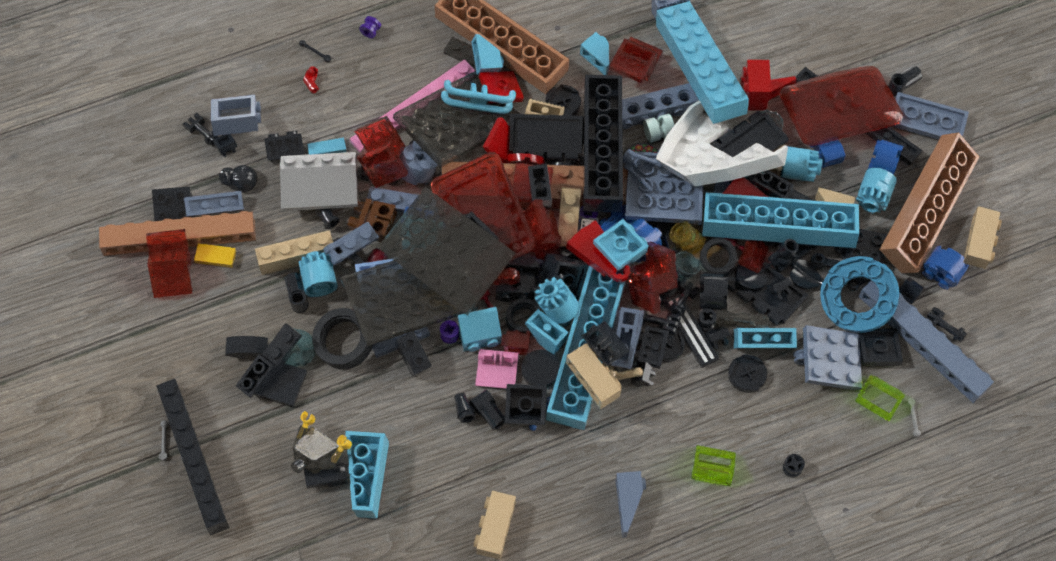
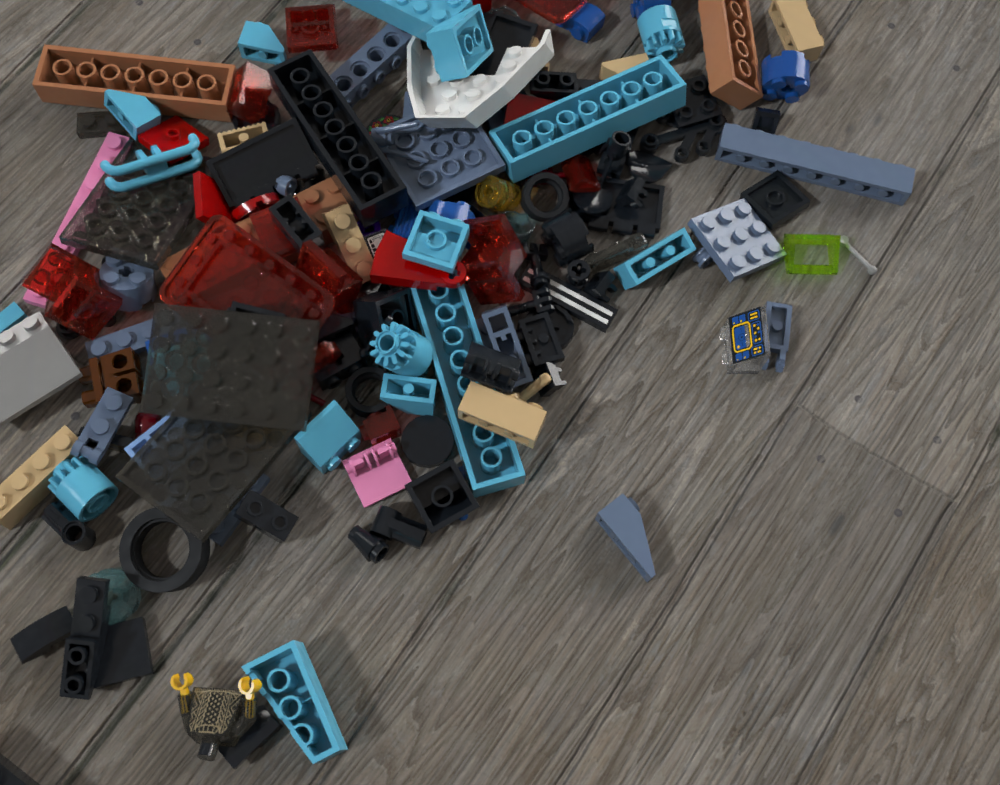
camera: 35 degrees left, 5 degrees up
(328, 218) = (54, 410): black bush -> none
(447, 335) = (292, 467): dark purple wheel -> none
(495, 525) = (496, 664): tan brick -> none
(552, 156) = (286, 185): none -> sand blue hinge
(567, 83) = (250, 93): none -> clear red brick
(658, 128) = (386, 91): light aqua wheel -> none
(711, 471) = (697, 443): clear neon green tile -> none
(722, 124) = (460, 44): none -> medium azure slope
(747, 373) = (658, 309): black tile -> none
(788, 426) = (746, 341): none -> slope
(796, 462) = (779, 377): black wheel -> none
(801, 164) = (570, 47): medium azure gear -> none
(816, 434) = (779, 332): none -> sand blue hinge
(854, 268) = (726, 119): dark azure plate -> none
(936, 318) = (806, 133): black hinge -> none

